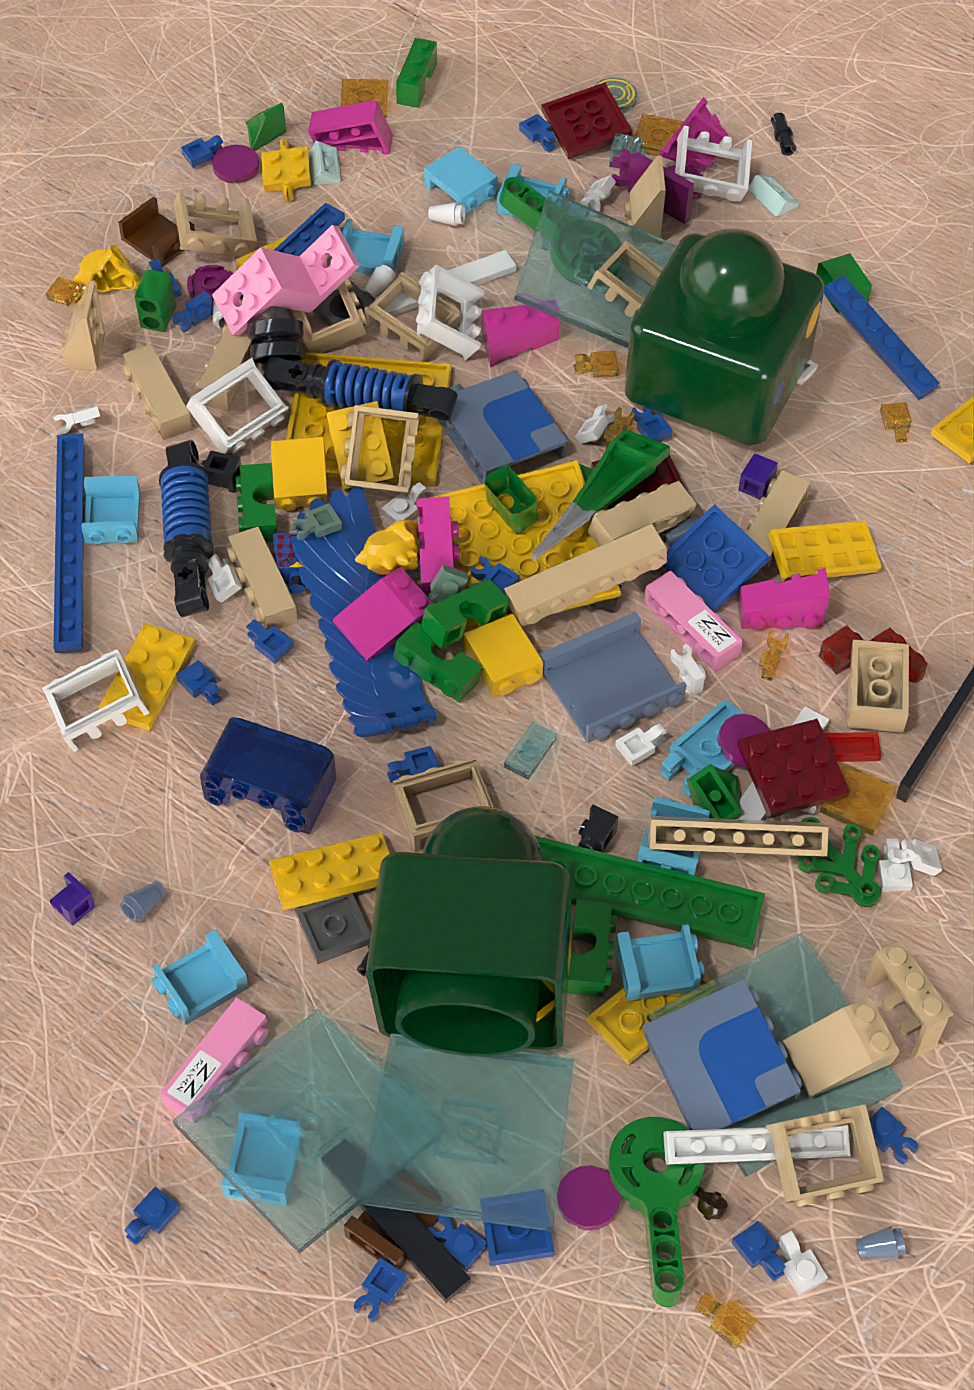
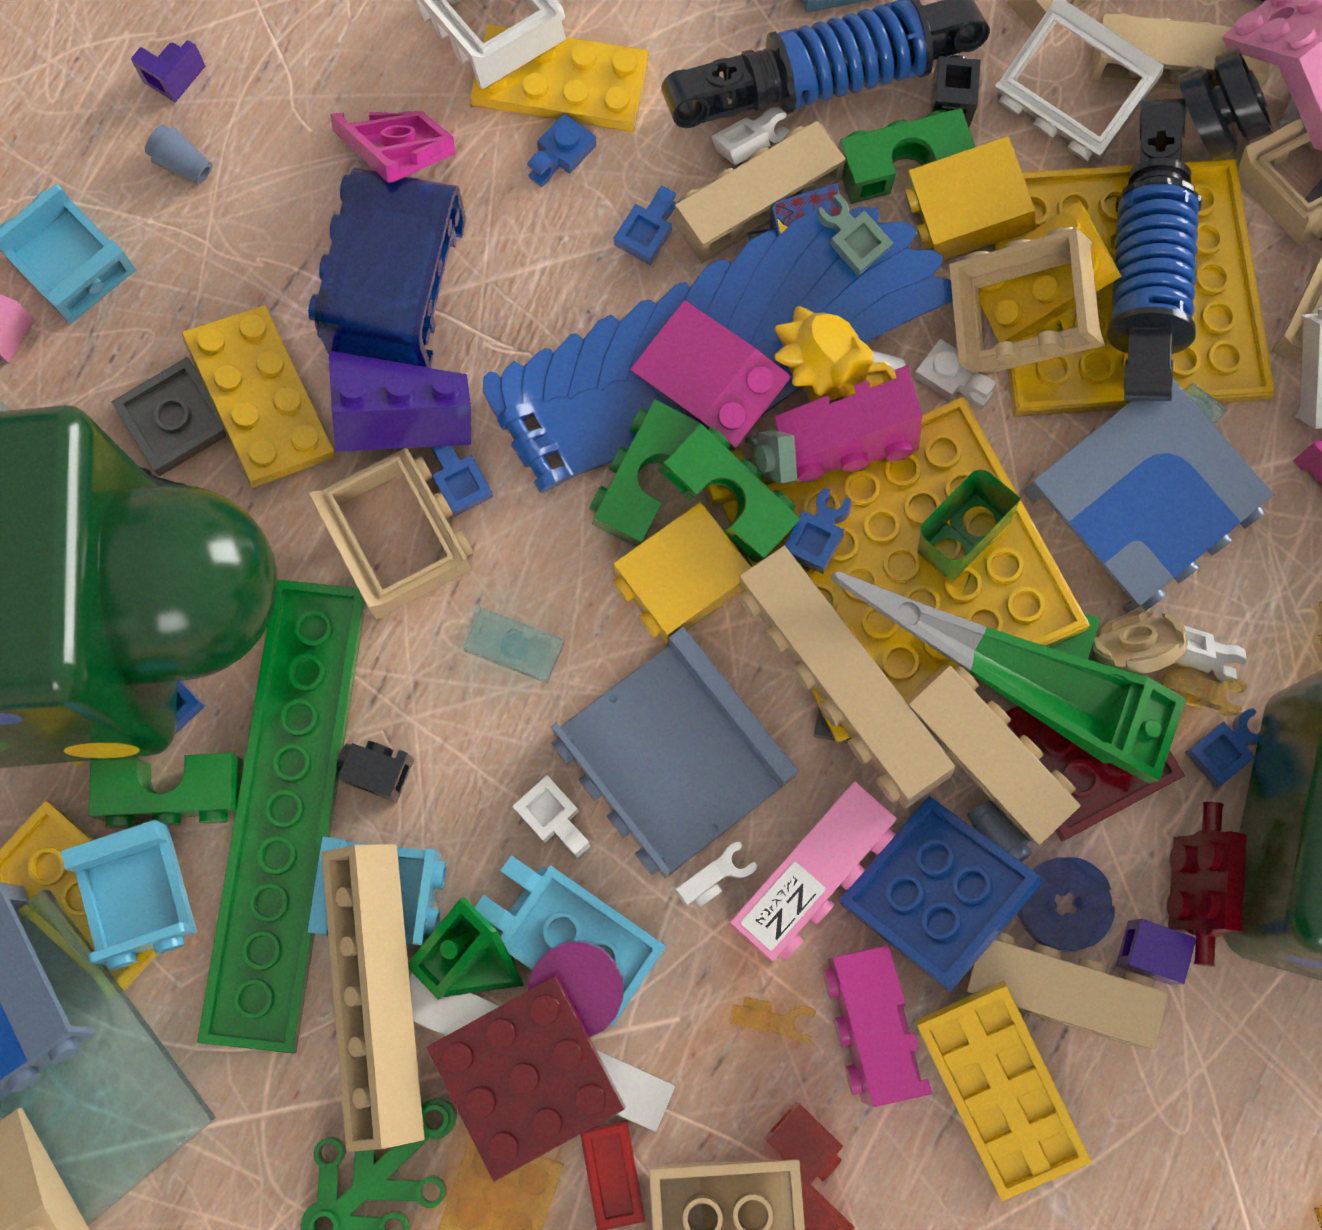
camera: 80 degrees right, 20 degrees up
(175, 762) = (396, 141): none -> dark pink wing
(363, 784) = (396, 405): none -> dark purple wedge
(588, 444) = (1140, 642): none -> tan tile
(725, 442) = (1207, 883): none -> dark red plate
(733, 500) = (1091, 899): none -> clear blue plate

